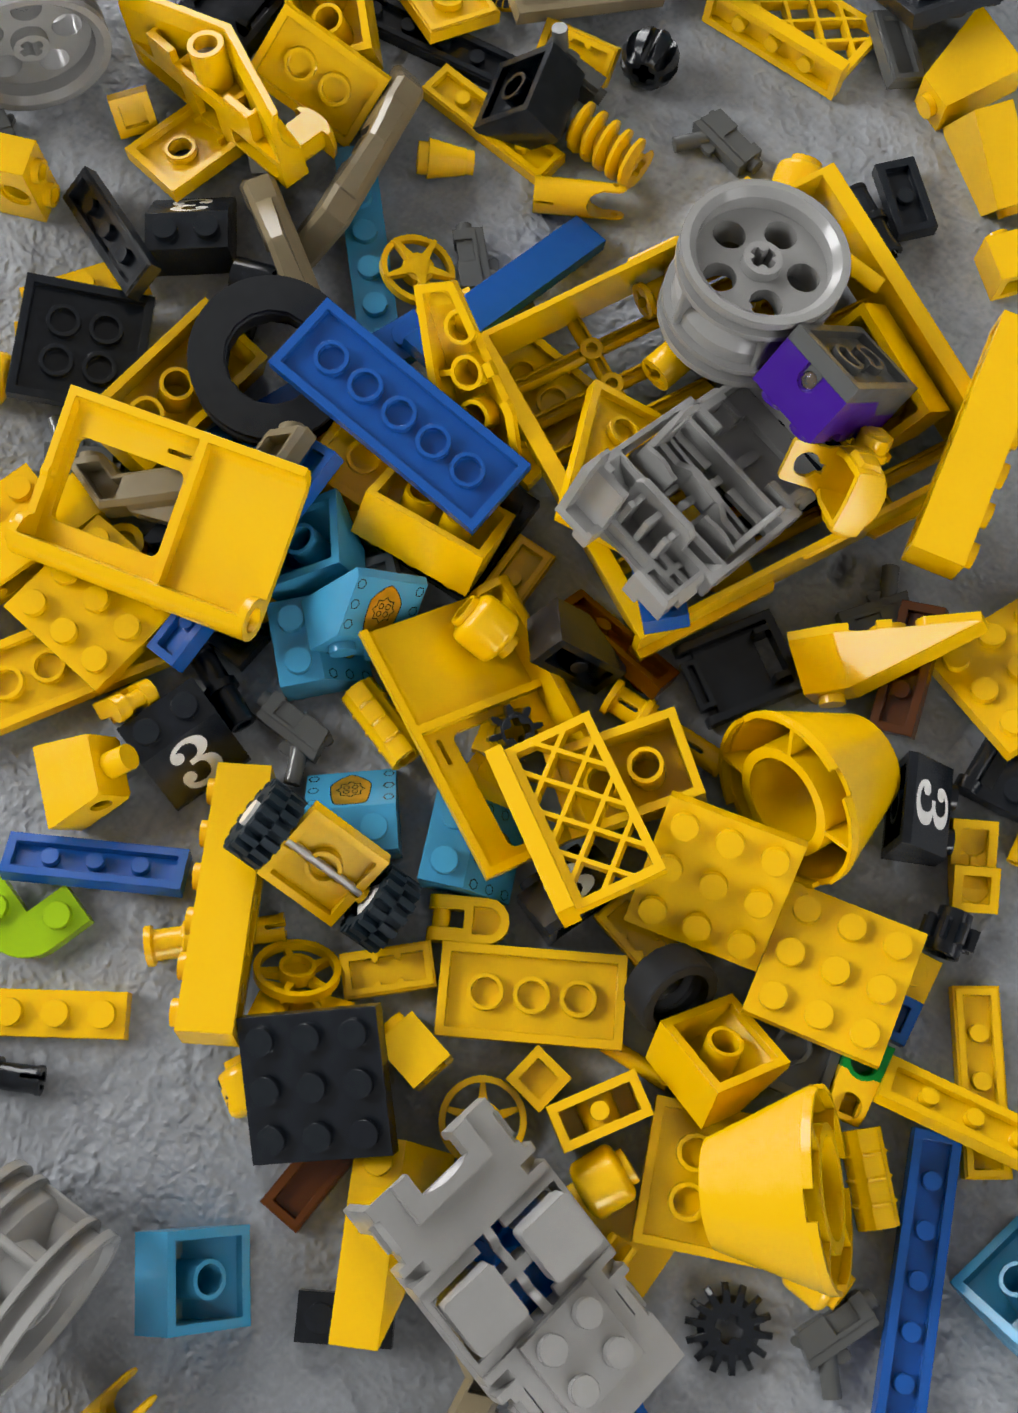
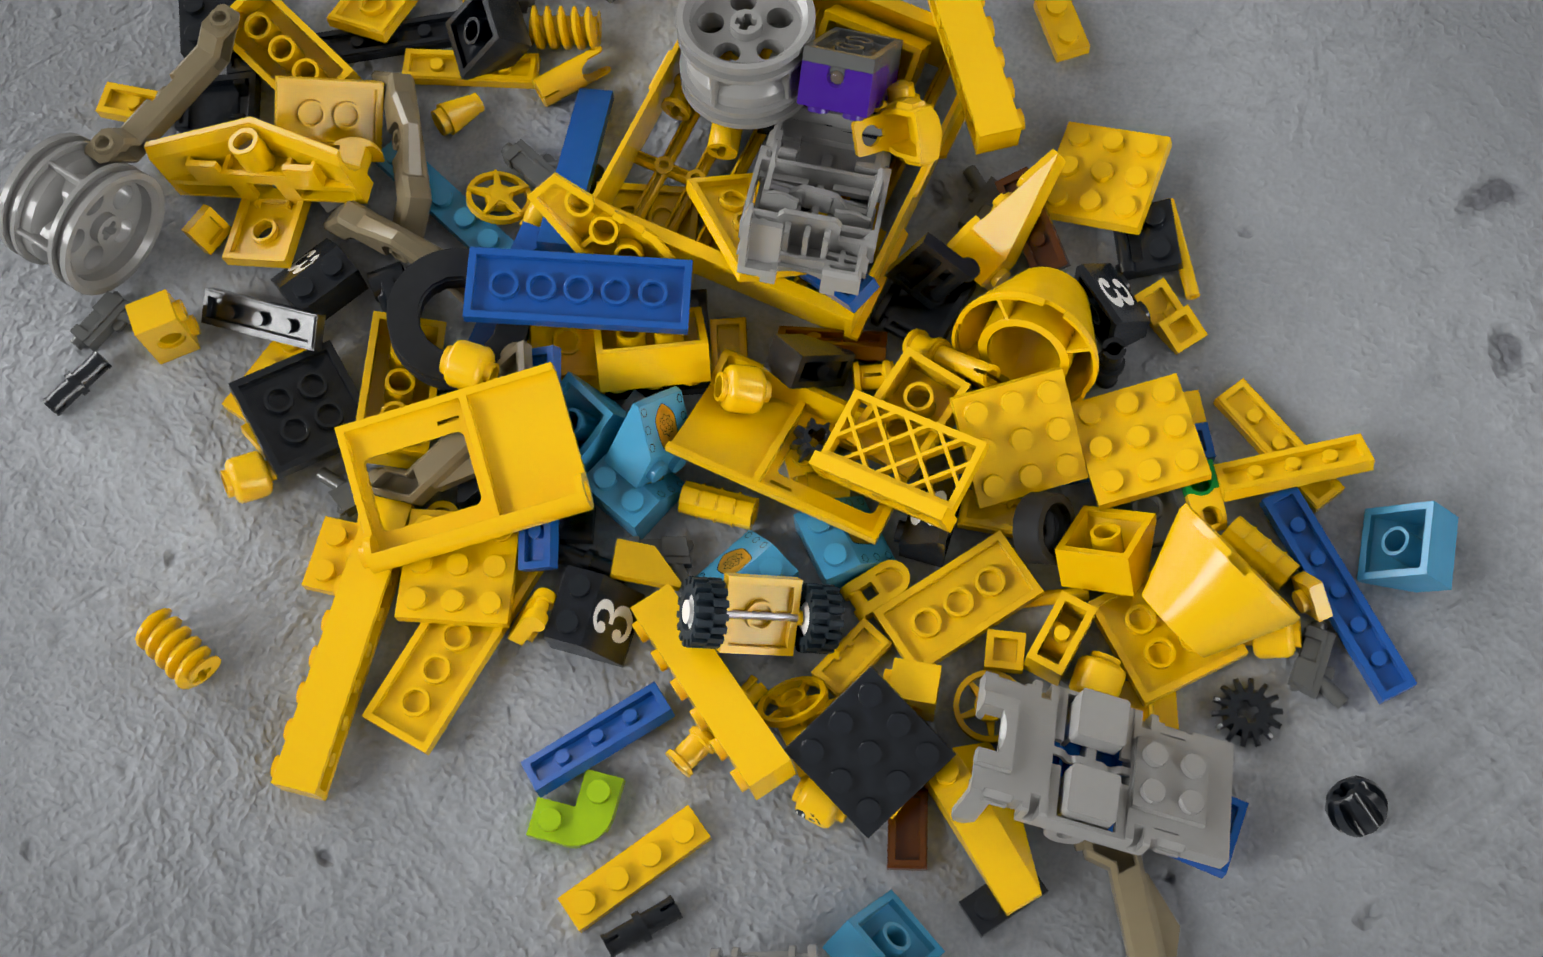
camera: 30 degrees left, 5 degrees down
(83, 778) = (545, 686): yellow torso -> none
(236, 413) = (468, 364): none -> yellow head
(262, 728) = (642, 565): none -> yellow tile
(705, 736) = (941, 352): none -> yellow pin
(762, 633) = (924, 263): none -> black plate
(870, 871) = (1110, 362): none -> black pin
(884, 1266) = (1310, 596): none -> yellow plate
(949, 933) = (1189, 366): black gear -> none

